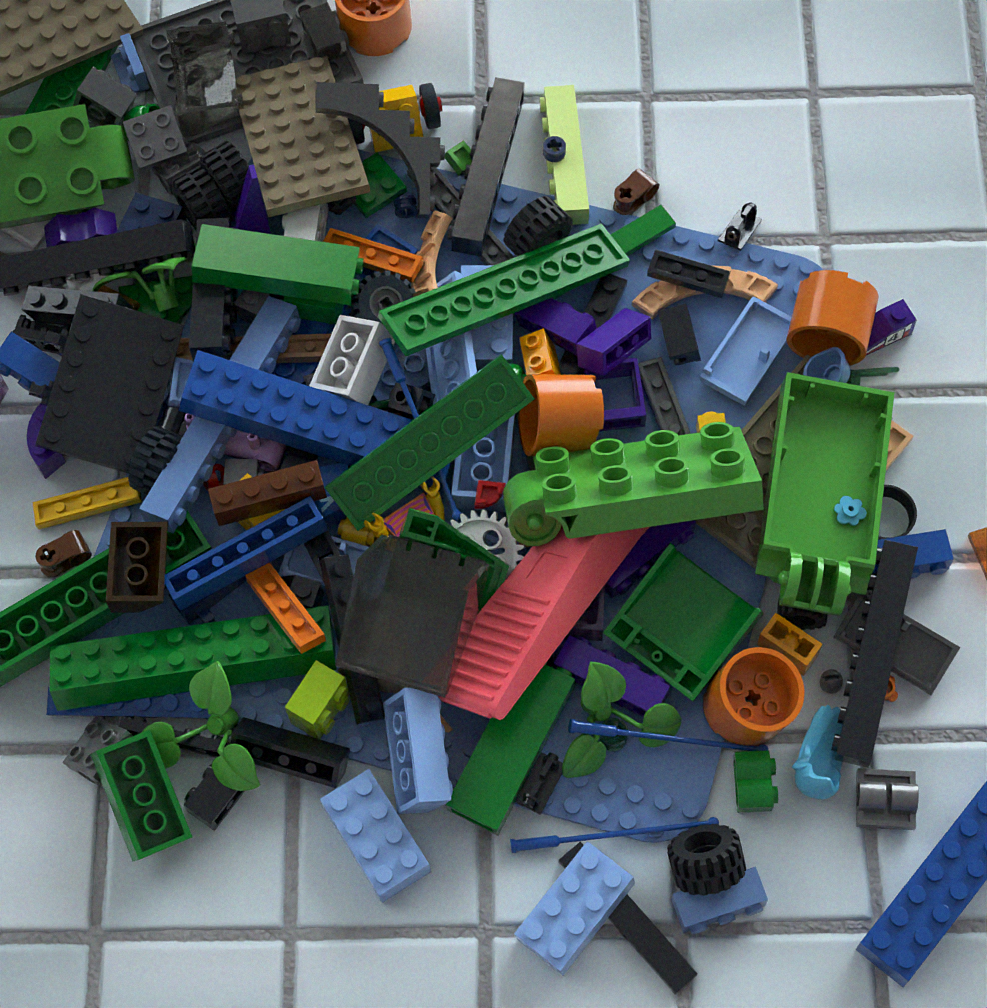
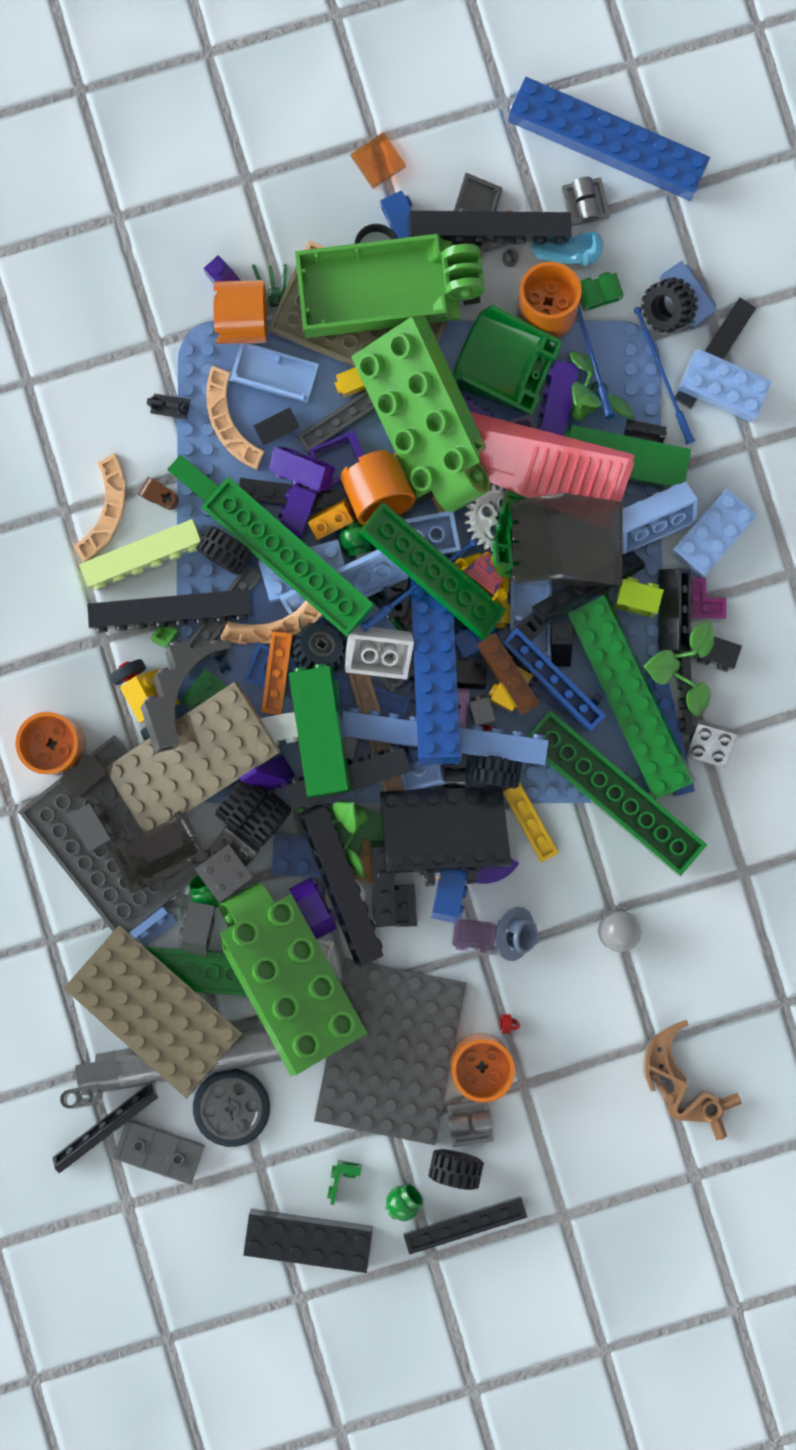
camera: 115 degrees left, 20 degrees up
(65, 552) = (572, 820): reddish brown piece -> none
(136, 566) = (587, 750): dark brown slope -> none
(141, 795) = (739, 697): green brick -> none
(283, 793) = (705, 607): none -> magenta plate
(285, 608) = (584, 637): orange plate -> none
(488, 493) = (453, 523): red tile -> none
(559, 144) = (153, 561): dark blue bush -> none
(632, 143) = (111, 513): none -> light nougat tile
(688, 273) = (225, 431): black plate -> none
(791, 642) = (497, 287): light orange brick -> none
(828, 365) = (283, 307): medium blue helmet -> none
(846, 516) = (390, 269): medium azure plant -> none

